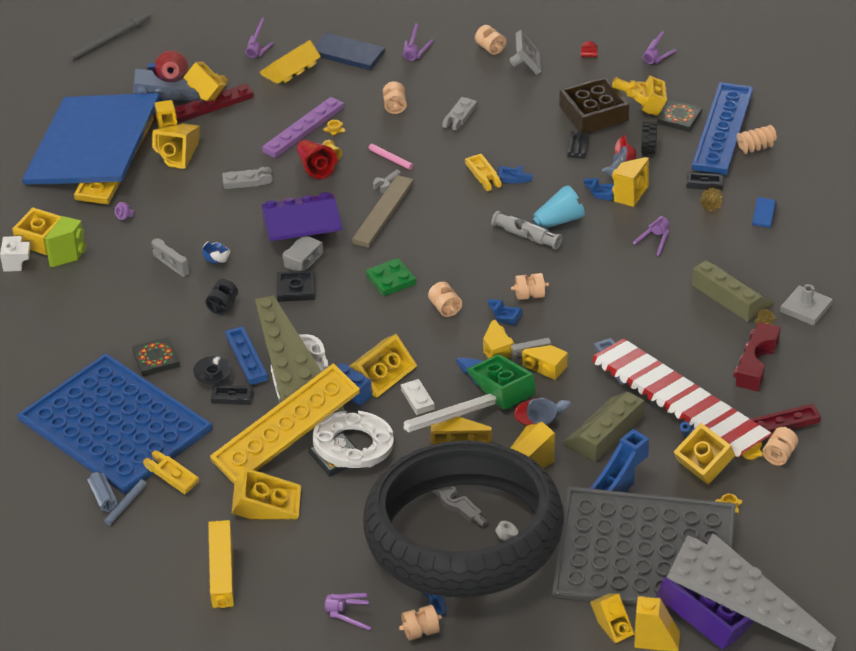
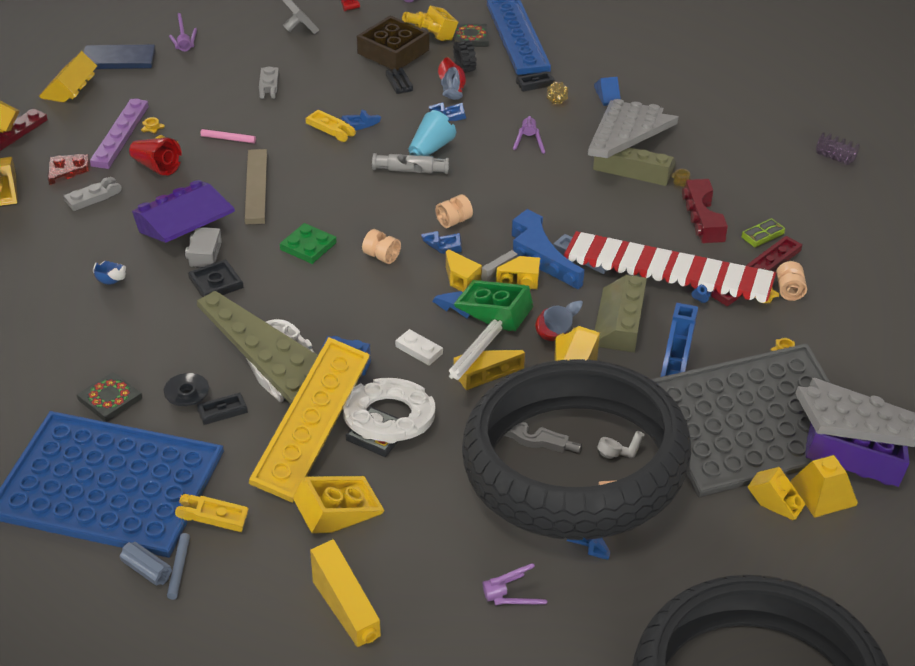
camera: 30 degrees left, 0 degrees up
(170, 257) = (61, 291): light grey hinge -> none
(221, 296) = (146, 312): black wheel -> none
(242, 147) = (67, 166): none -> clear red wing
(246, 355) = (212, 363): blue plate -> none
(254, 47) = (20, 76): medium lavender plant -> none
(385, 183) = (240, 159): light grey bar -> none
(385, 364) = (368, 322): yellow slope -> none
(394, 97) = (197, 83): light nougat wheel -> none
(420, 622) = (600, 573): light nougat wheel -> none
(490, 39) = (254, 13): light nougat wheel -> none
(576, 340) = (532, 242): none -> blue arch
(631, 181) = (477, 96): yellow slope -> none
(704, 453) = (737, 308): yellow brick -> none
(747, 250) = (627, 125): none -> light grey wing
(756, 139) = (556, 35): light nougat piece -> none
(798, 394) = (763, 233): none -> tile
(806, 304) = (705, 156): light grey tile -> none

